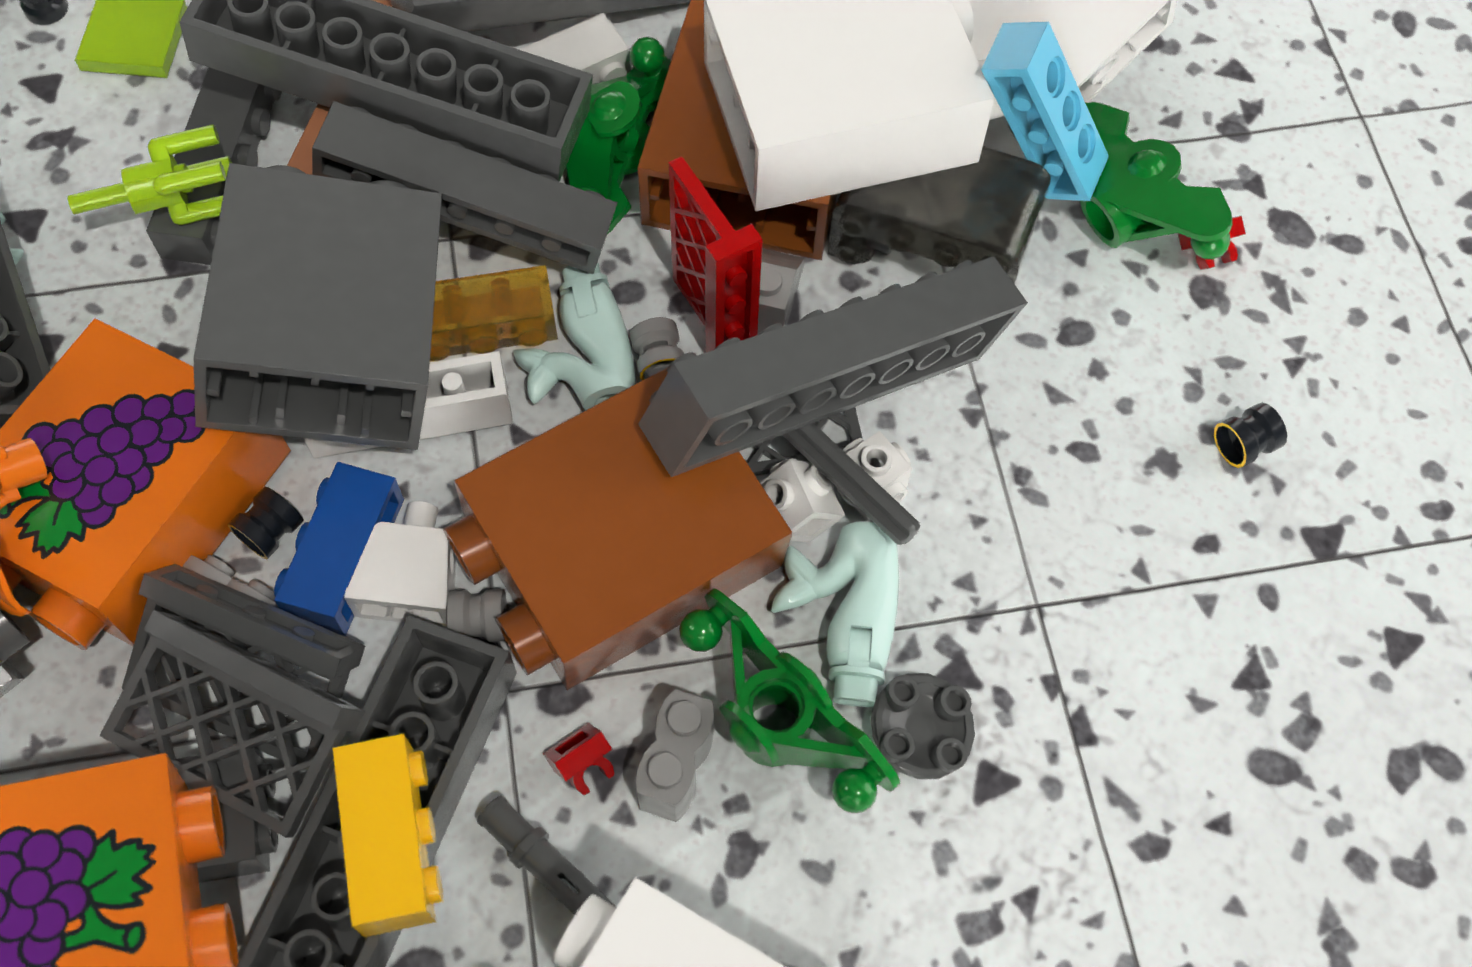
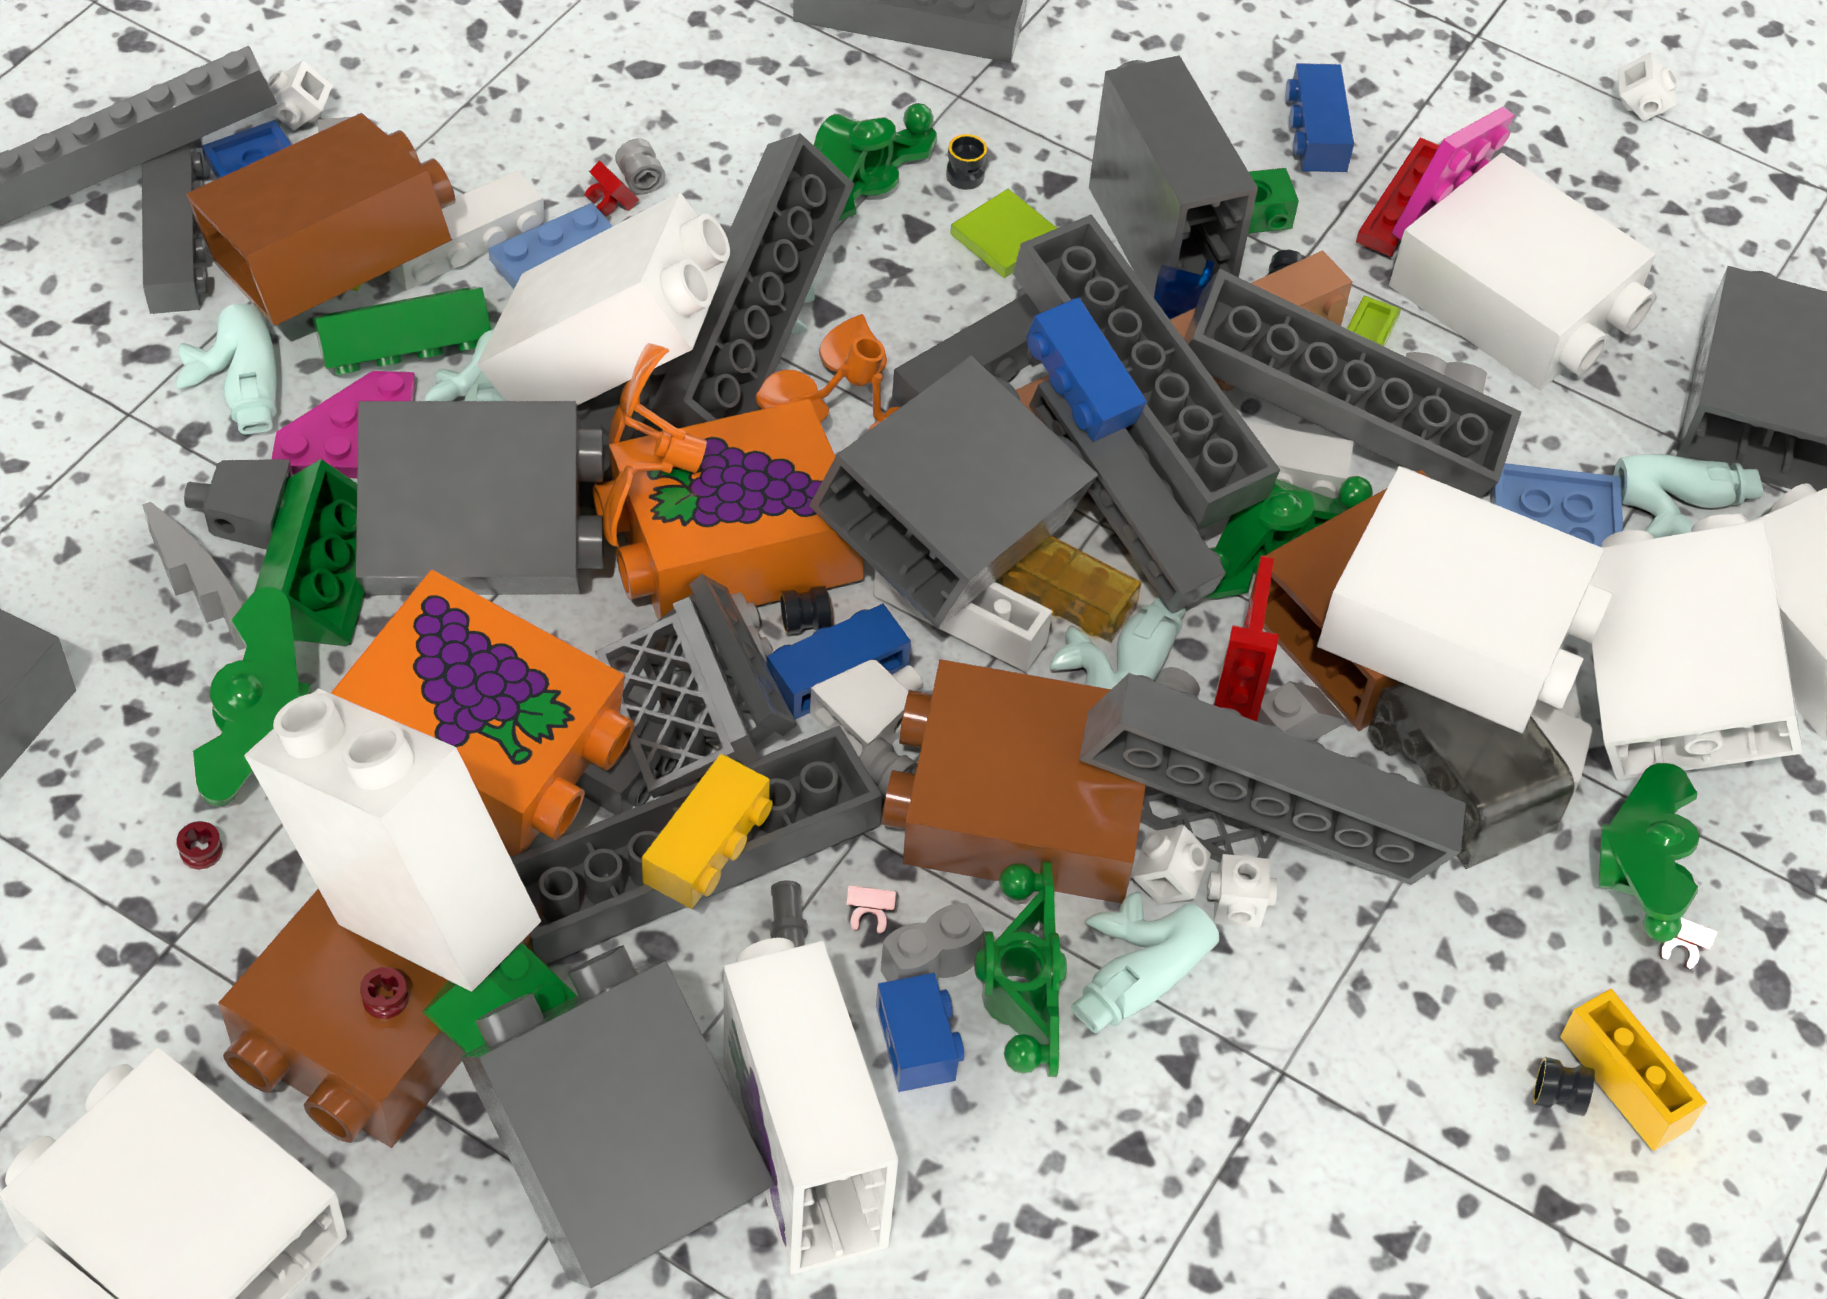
camera: 40 degrees right, 10 degrees down
(109, 244) = (847, 350): none -> orange plant
(164, 181) = (930, 342): lime plant -> none
(345, 101) = (1085, 369): none -> blue brick
(733, 843) = (918, 1031): none -> blue brick
(854, 483) = (1215, 874): dark grey axle -> none
(923, 725) = (1118, 1071): dark grey dish -> none
(1045, 108) = (1598, 728): medium azure brick -> none
(1290, 377) = (1633, 1069): none -> yellow brick

